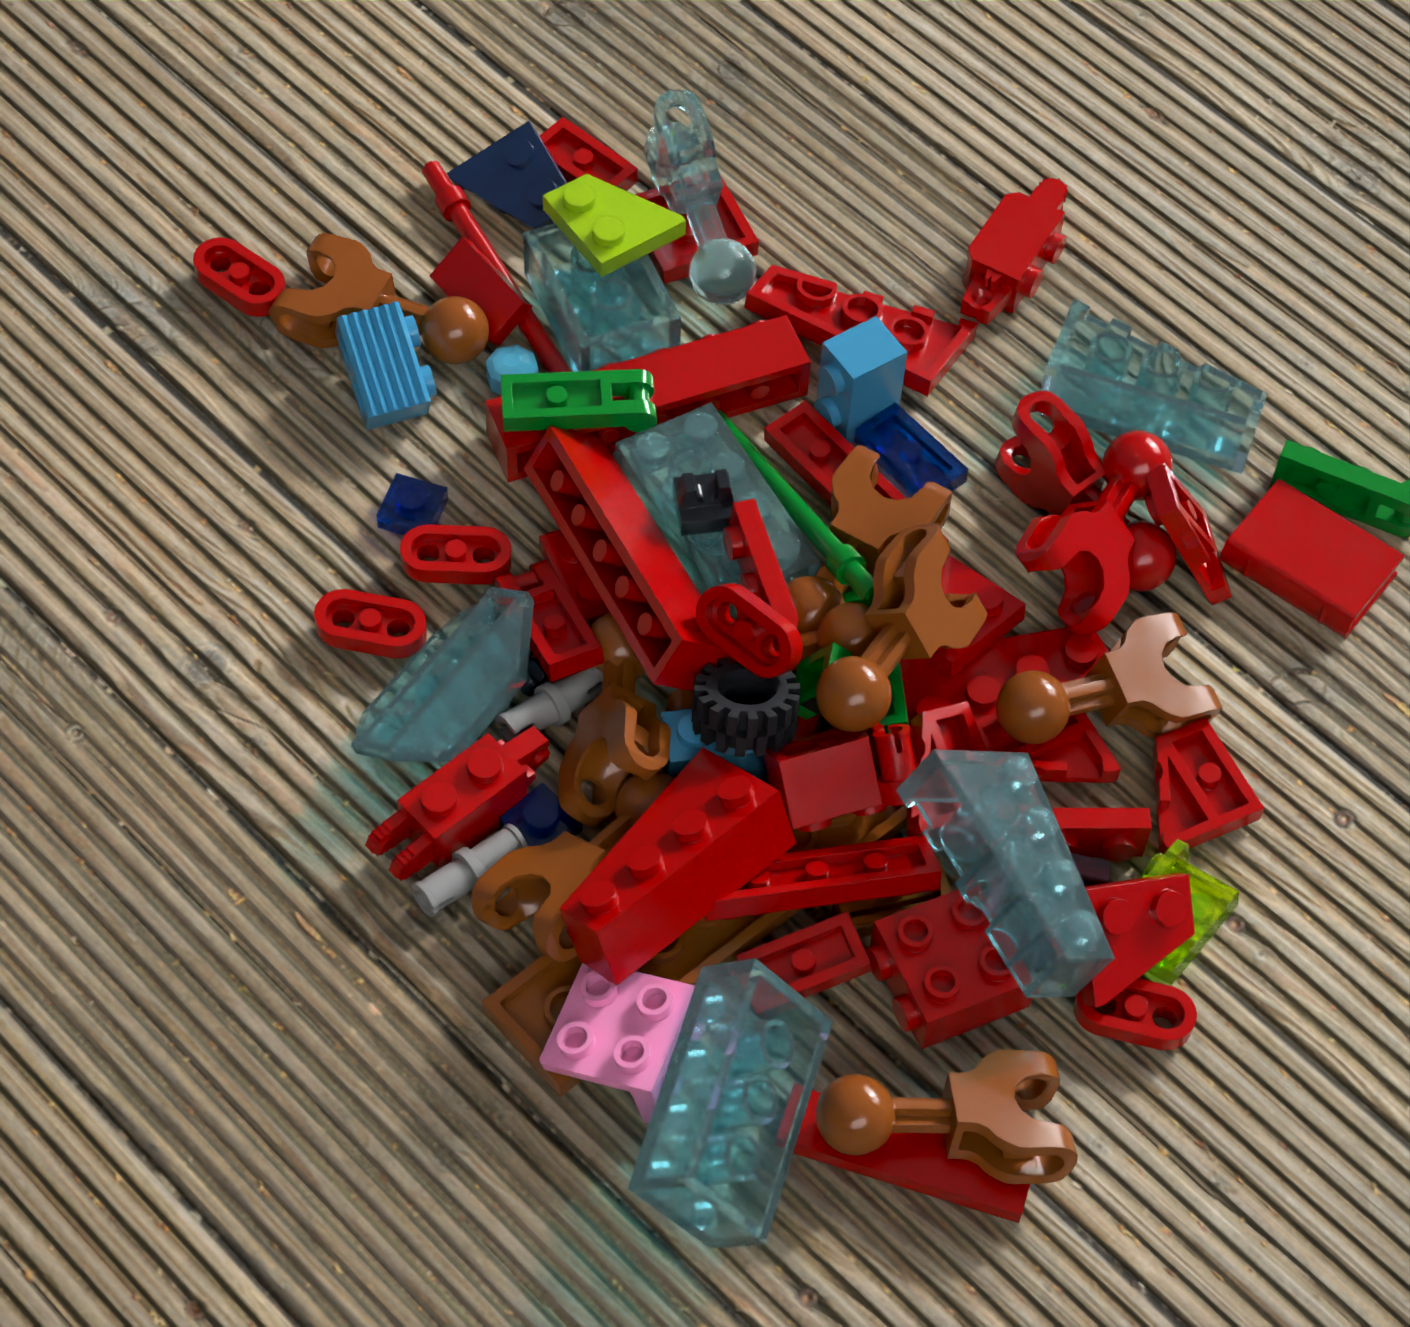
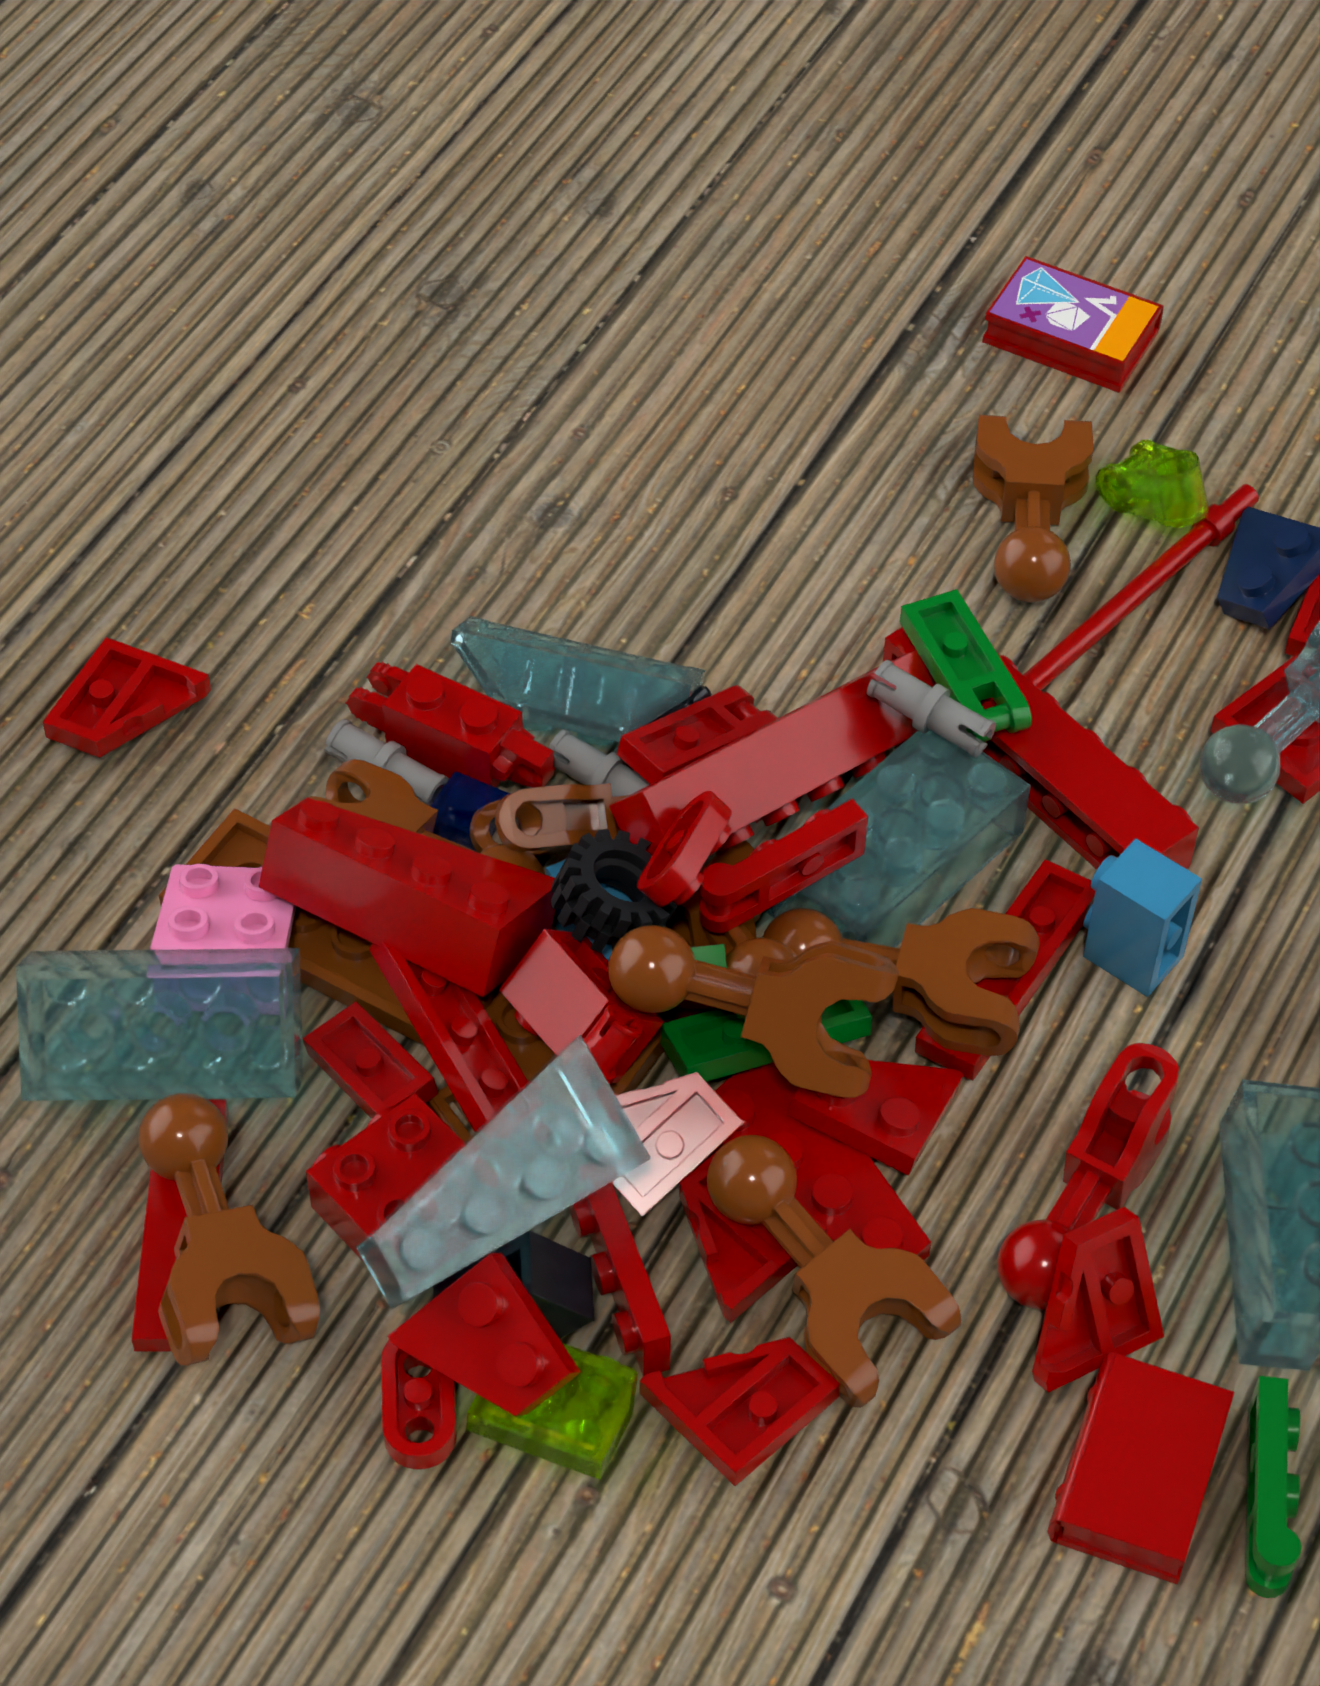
camera: 75 degrees right, 5 degrees down
(176, 210) = (1072, 323): none -> piece
(249, 281) = (1017, 386): red plate -> none
(294, 1073) = (121, 697): none -> red wing
(372, 621) = (642, 607): red plate -> none
(384, 365) = (950, 518): dark azure brick -> none
(405, 215) = (1156, 485): none -> clear neon green piece
(411, 504) = (805, 606): clear blue plate -> none
(456, 553) = (764, 658): red plate -> none
(472, 276) = (1102, 575): red tile -> none
(509, 360) = (1018, 634): medium azure tile -> none
(595, 315) = (1145, 661): clear light blue brick -> none
(610, 223) = (1212, 623): lime wing -> none
(631, 431) = (931, 708): none -> light grey pin
(703, 502) = (878, 792): black tile -> none
(823, 312) = (1246, 929): red wing -> none
(841, 559) = (948, 885): green bar -> none
(910, 451) = (1084, 1010): clear blue plate -> none
(1092, 539) = (1013, 1183): red piece -> none

